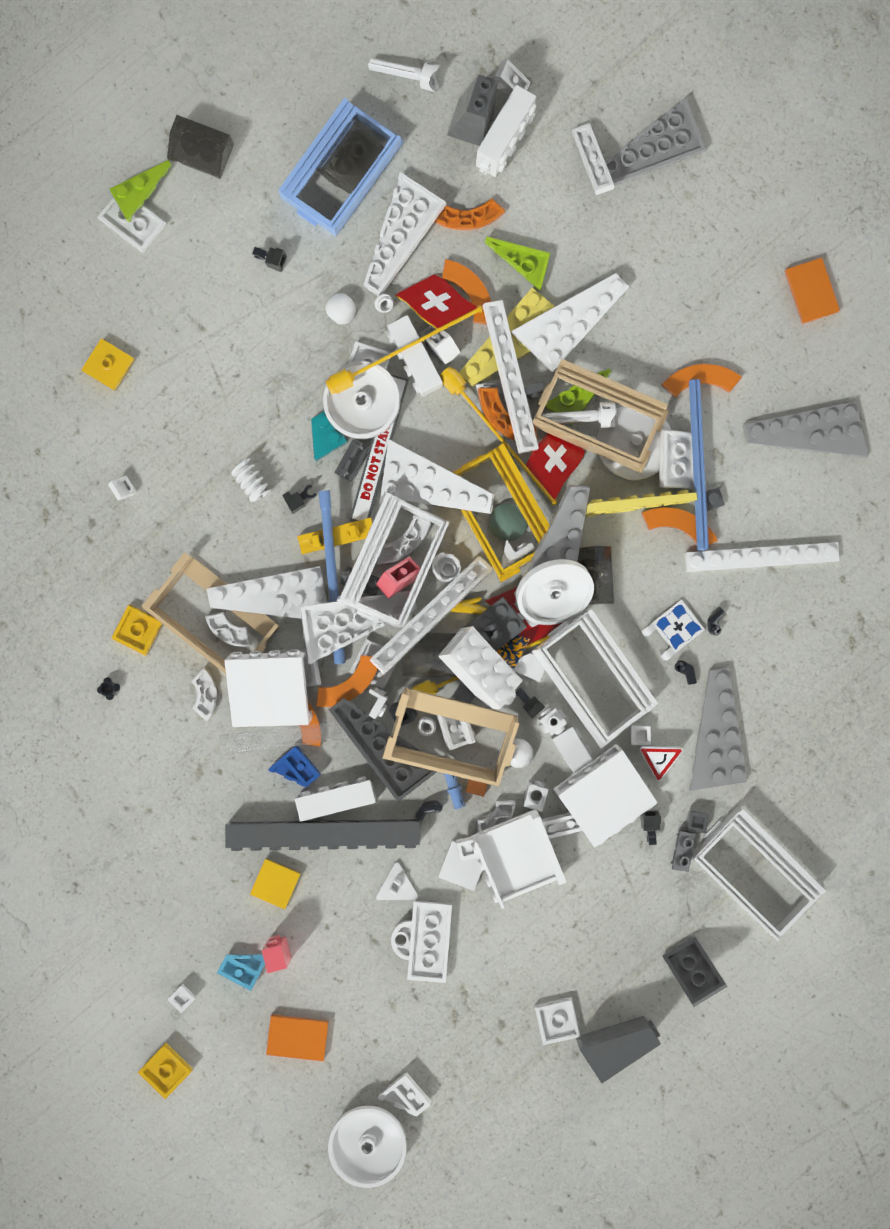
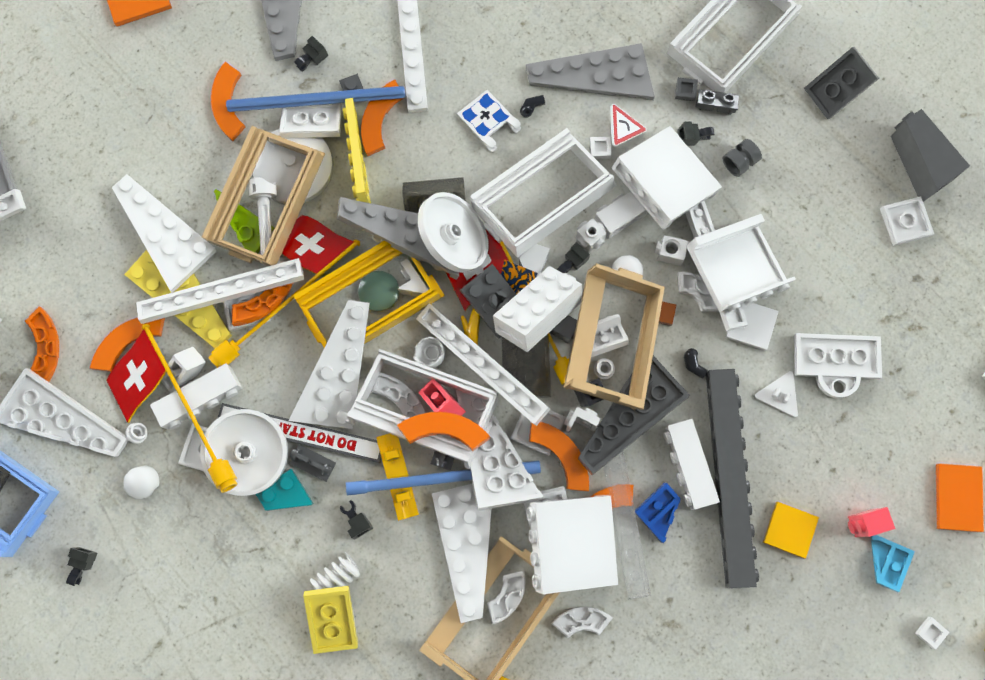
camera: 85 degrees left, 10 degrees down
(213, 476) = (330, 619): none -> light yellow plate
(374, 578) = (446, 424): none -> orange tile
(455, 791) = (672, 335): medium blue pin -> none
(525, 260) = (95, 281): lime wing -> none
(534, 391) = (237, 267): dark grey plate -> none
(624, 869) = (739, 159): none -> dark grey wheel
(713, 621) = (478, 81): black arm -> none
(748, 462) = (313, 51): none -> pearl dark grey piece

